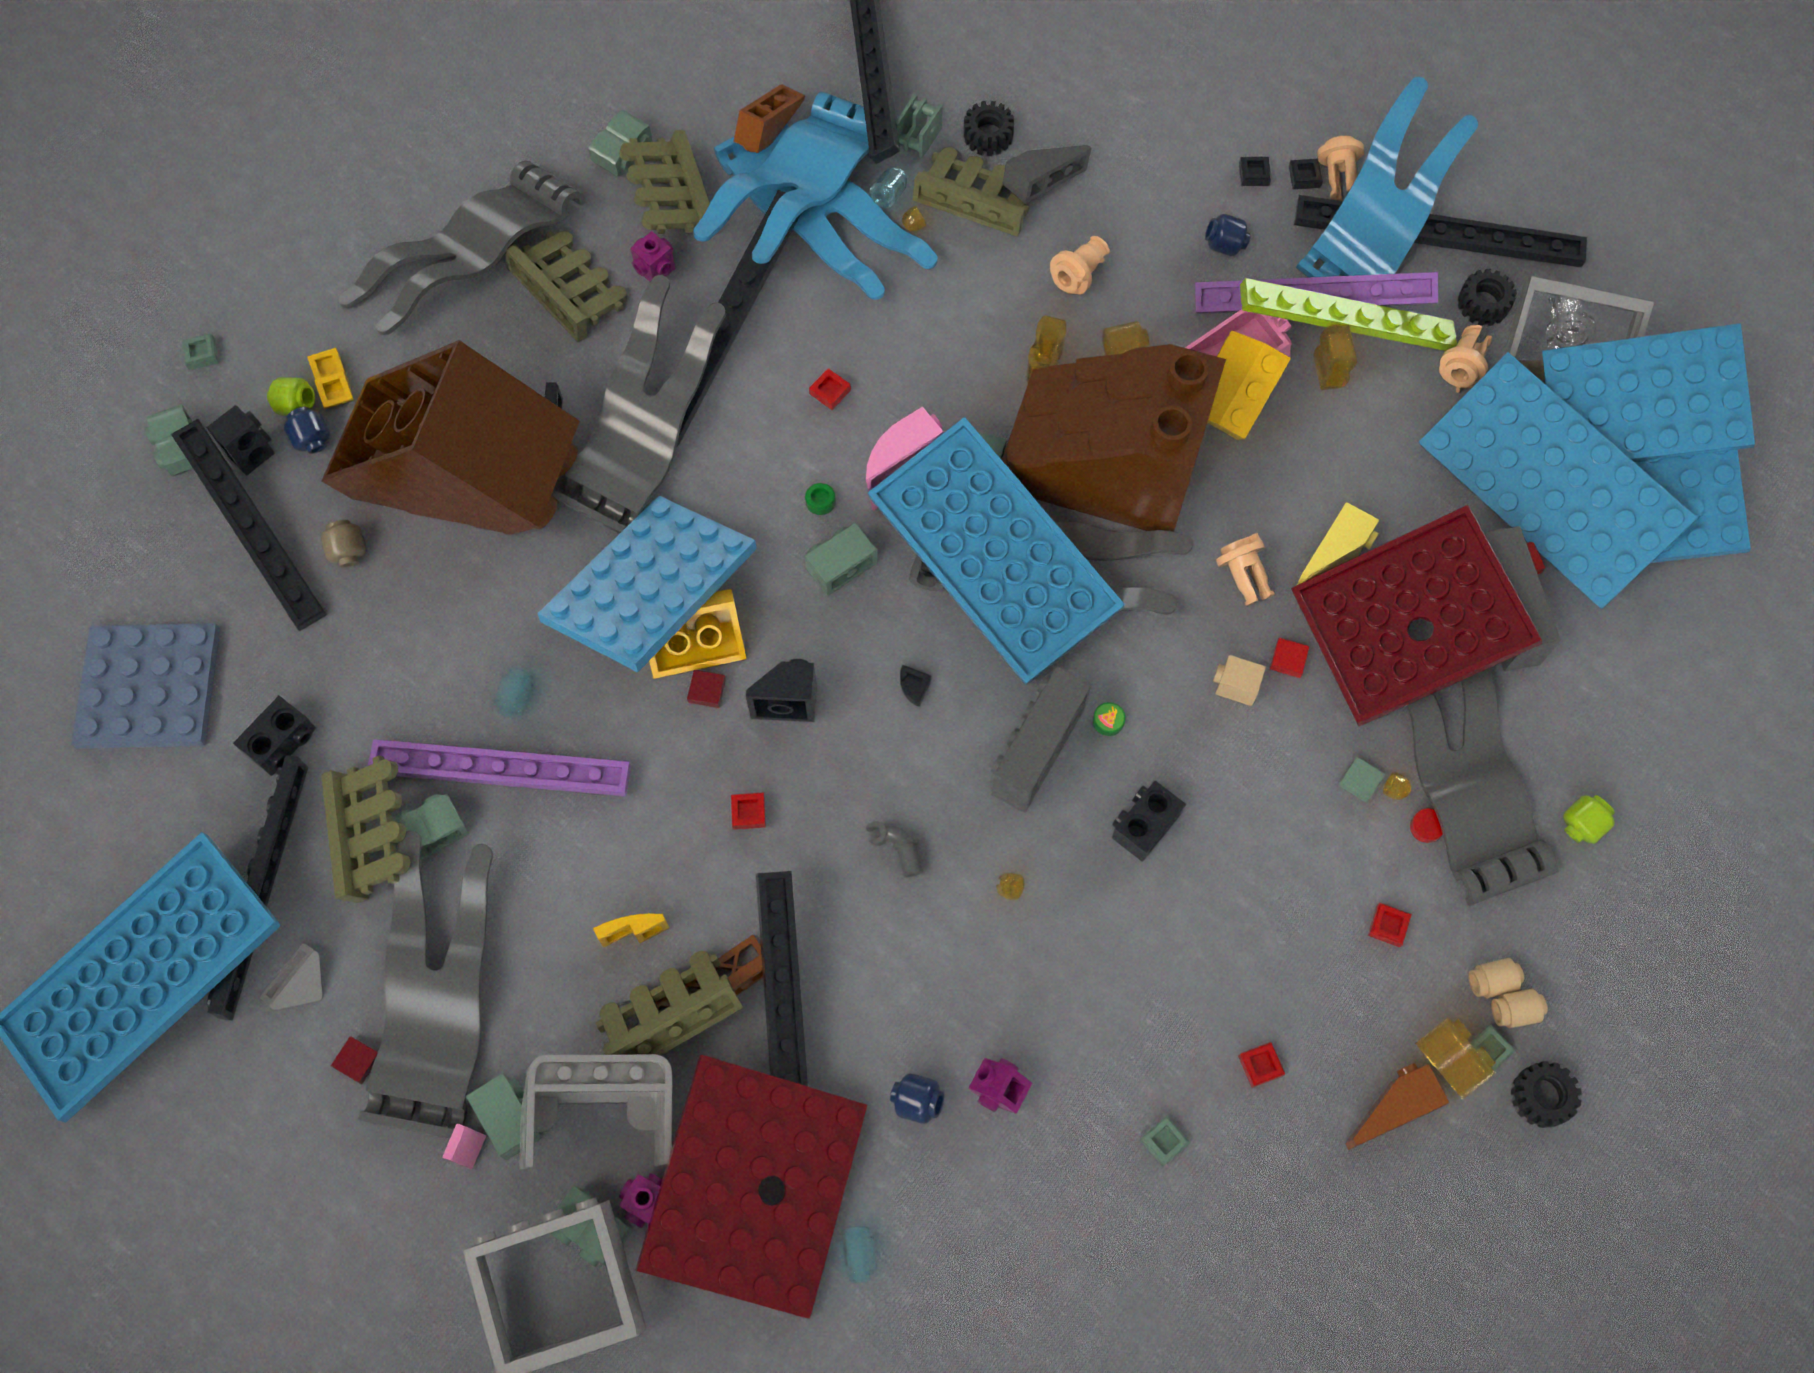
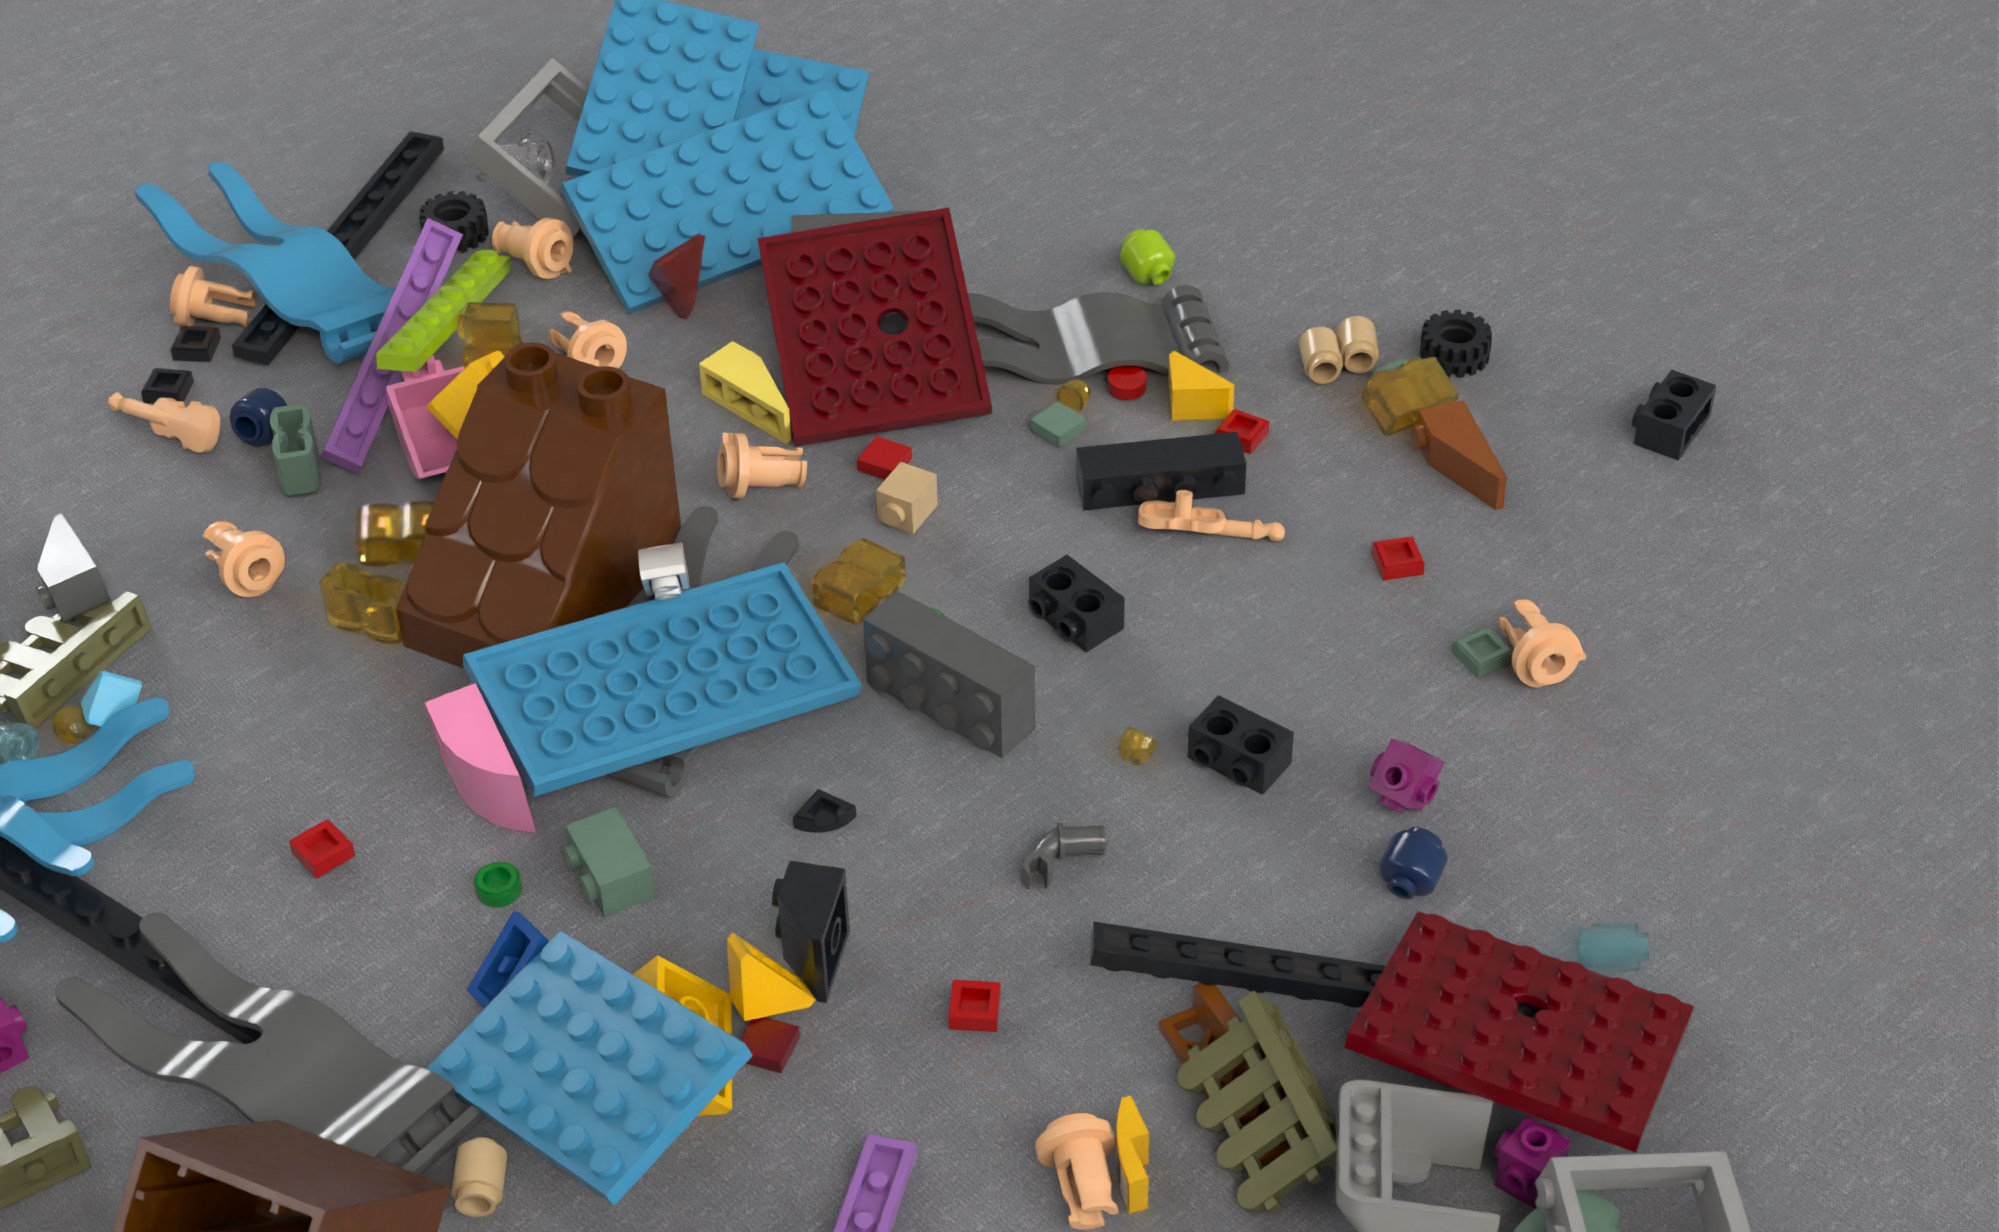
camera: 80 degrees left, 25 degrees down
(579, 545) = (479, 1176): none -> tan brick
(620, 894) = (1078, 1151): none -> light nougat piece
(740, 670) = (761, 984): none -> yellow slope
(744, 520) = (511, 952): none -> blue slope
(931, 231) = (109, 696): none -> medium azure slope
(1024, 961) = (1240, 744): none -> black brick
(1076, 520) = (664, 570): none -> white slope
(1141, 662) = (858, 580): none -> clear yellow brick
(1161, 1185) = (1544, 652): none -> light nougat piece
(1191, 264) = (295, 449): none -> sand green brick
(1211, 191) = (194, 425): none -> light nougat piece
(1268, 876) = (1202, 520): none -> light nougat piece
(1314, 865) = (1159, 468): none -> black brick
(1353, 426) = (593, 343): none -> light nougat piece
(1420, 876) = (1197, 391): none -> yellow slope
(1448, 465) = (678, 275): none -> clear red slope
(1492, 1303) = (1673, 414): none -> black brick

